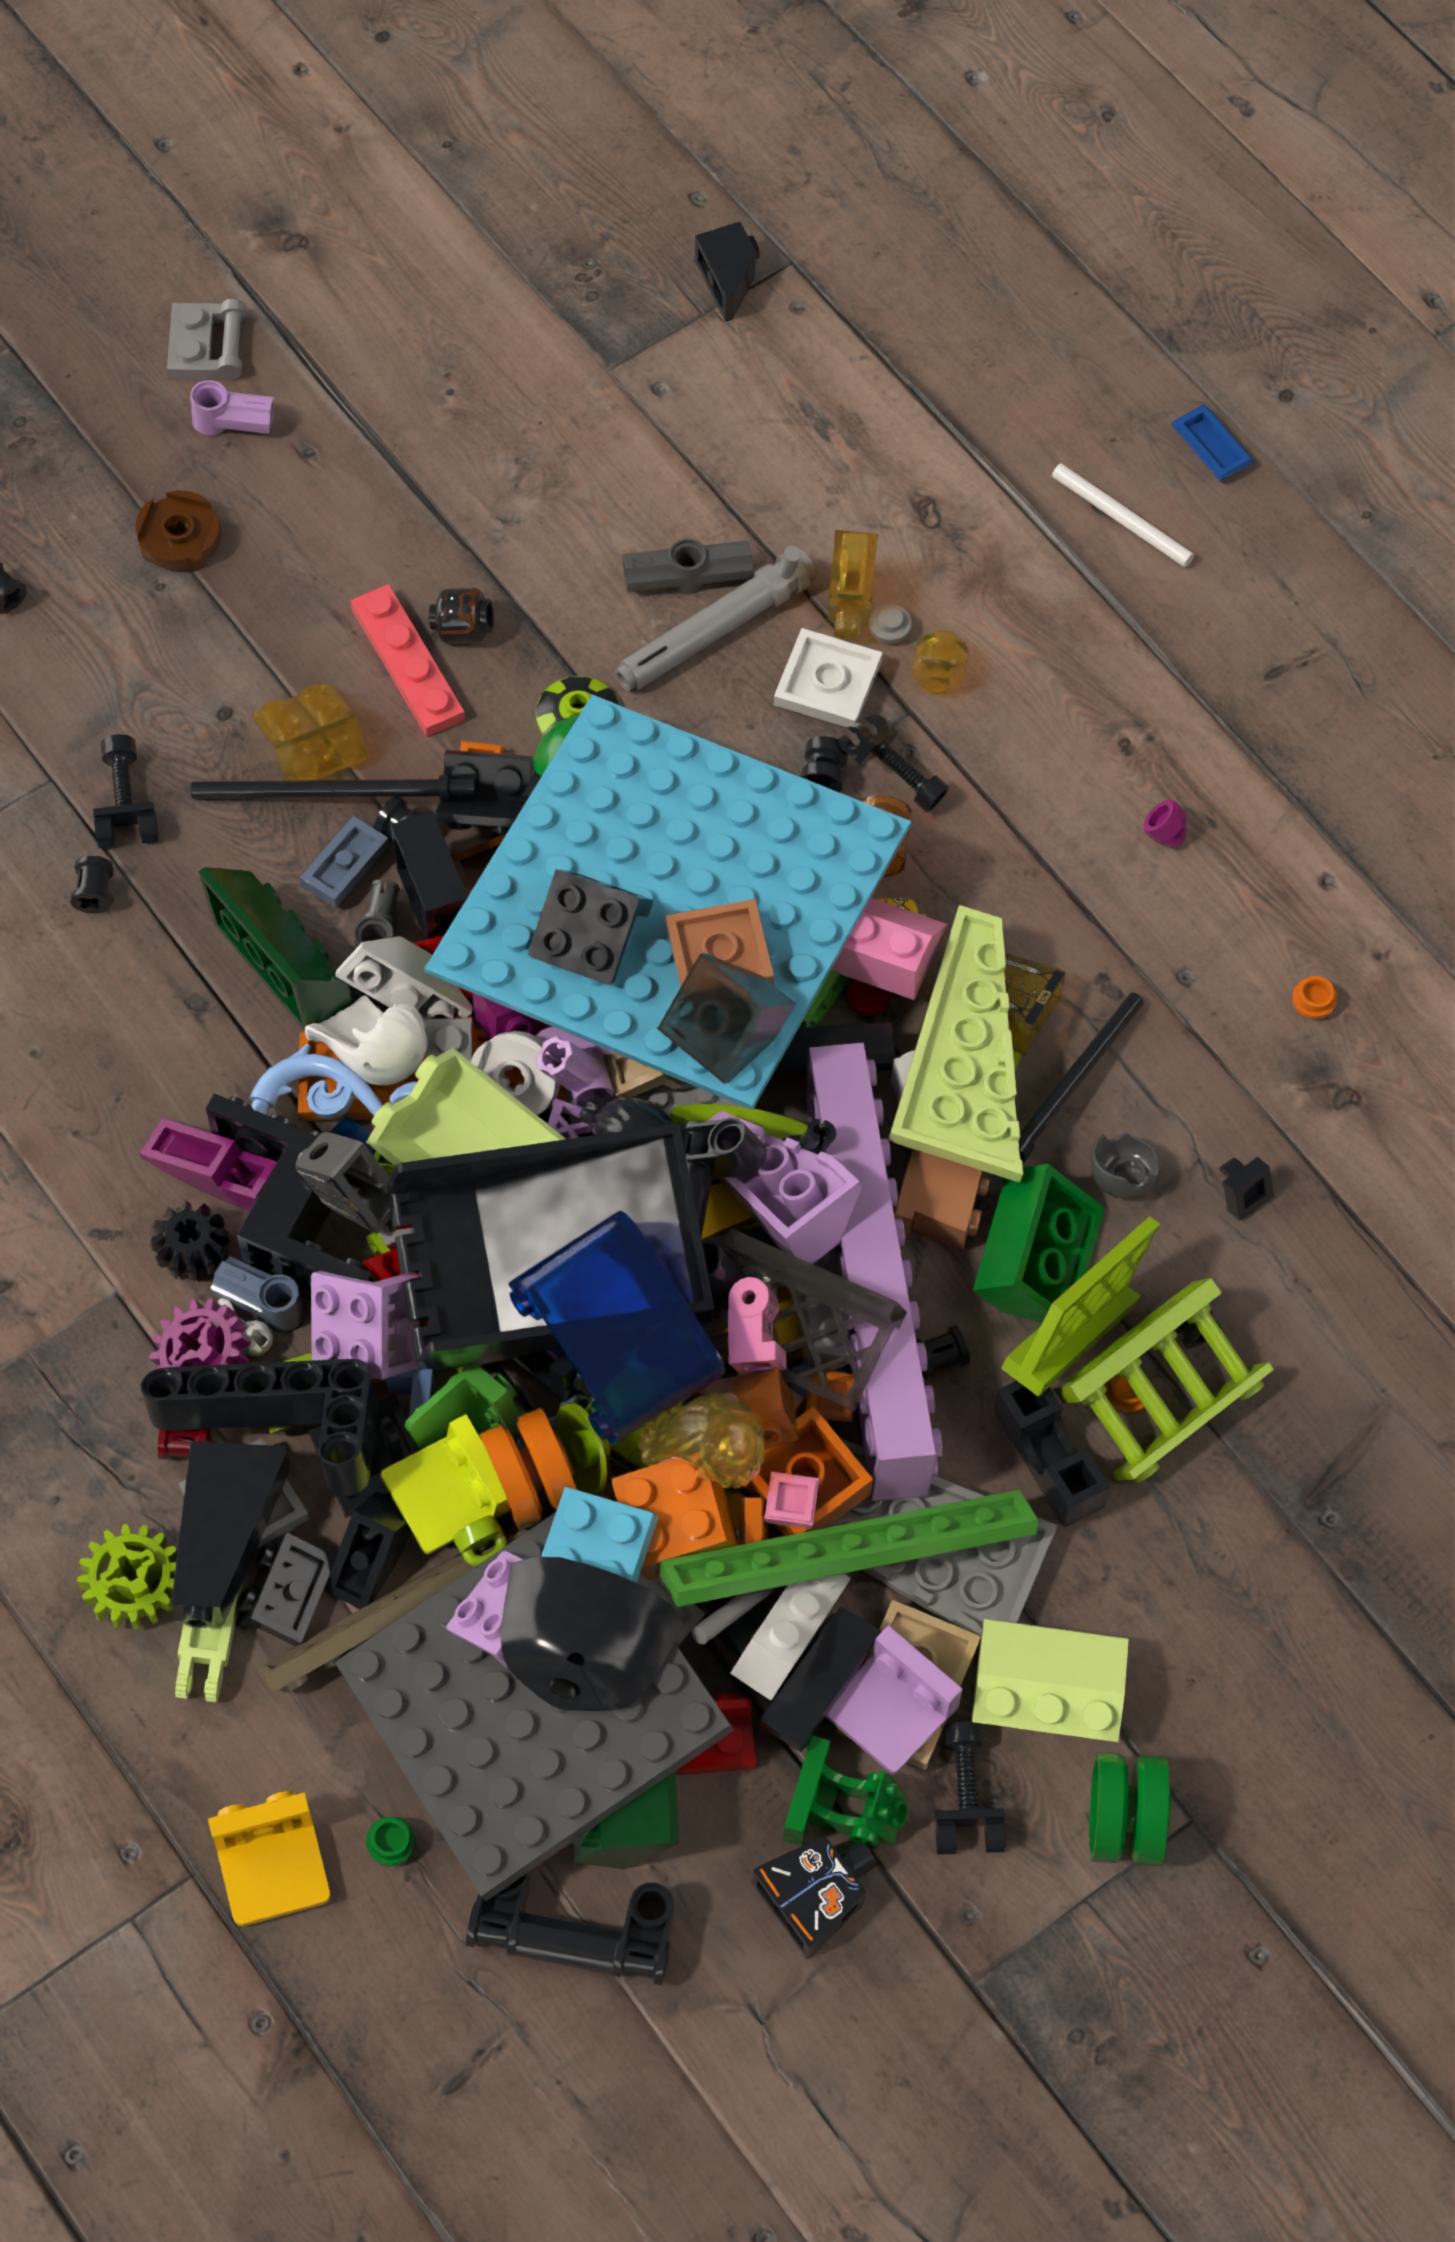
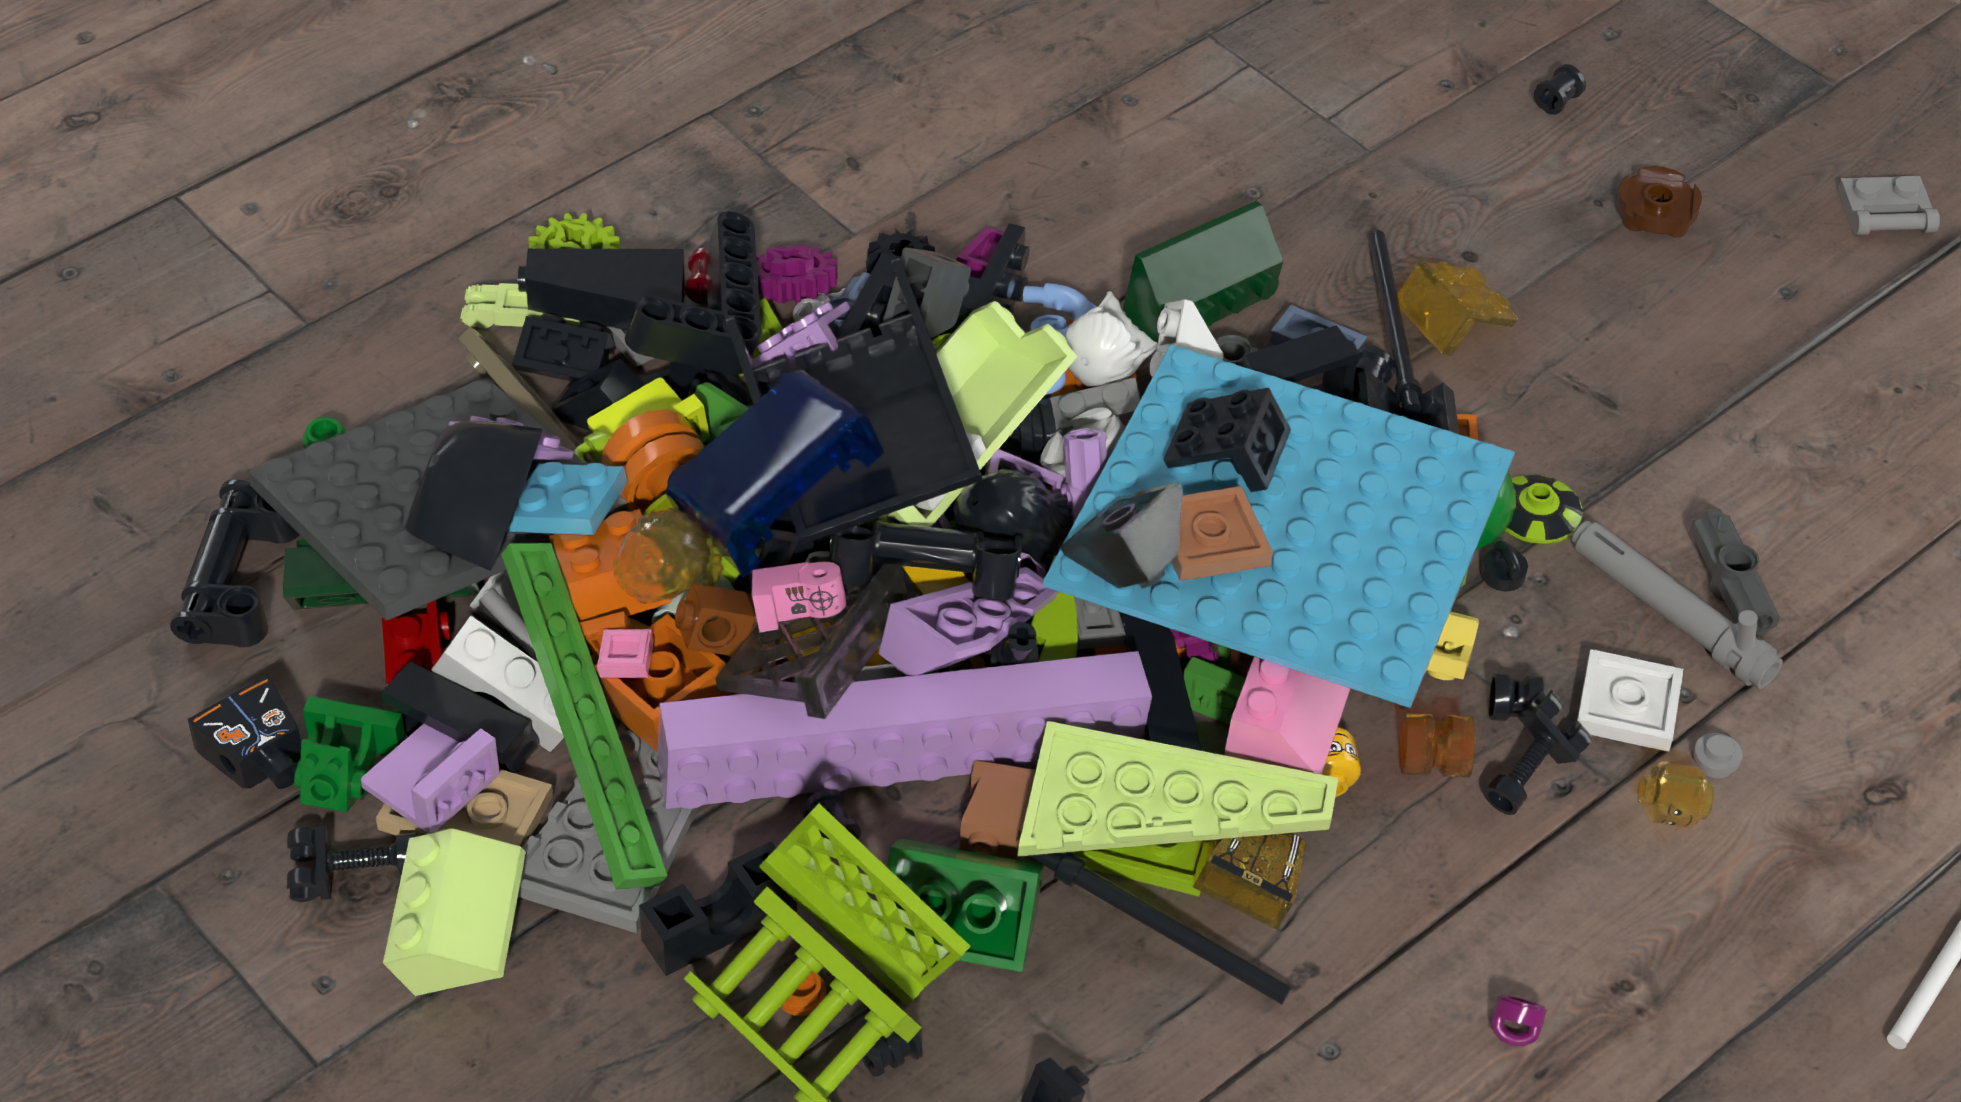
camera: 85 degrees right, 15 degrees down
(92, 884) = (1257, 174): black bush -> none
(119, 753) = (1336, 201): black bar -> none
(218, 410) = (1807, 222): lavender piece -> none
(269, 1858) = (311, 360): yellow bracket -> none
(407, 660) = (1561, 374): coral plate -> none
(462, 616) = (1618, 400): black head -> none
(852, 582) = (1751, 702): clear yellow torso -> none
(1124, 1165) = (1066, 972): dark grey hair -> none
(1132, 1809) = (309, 973): green wheel -> none

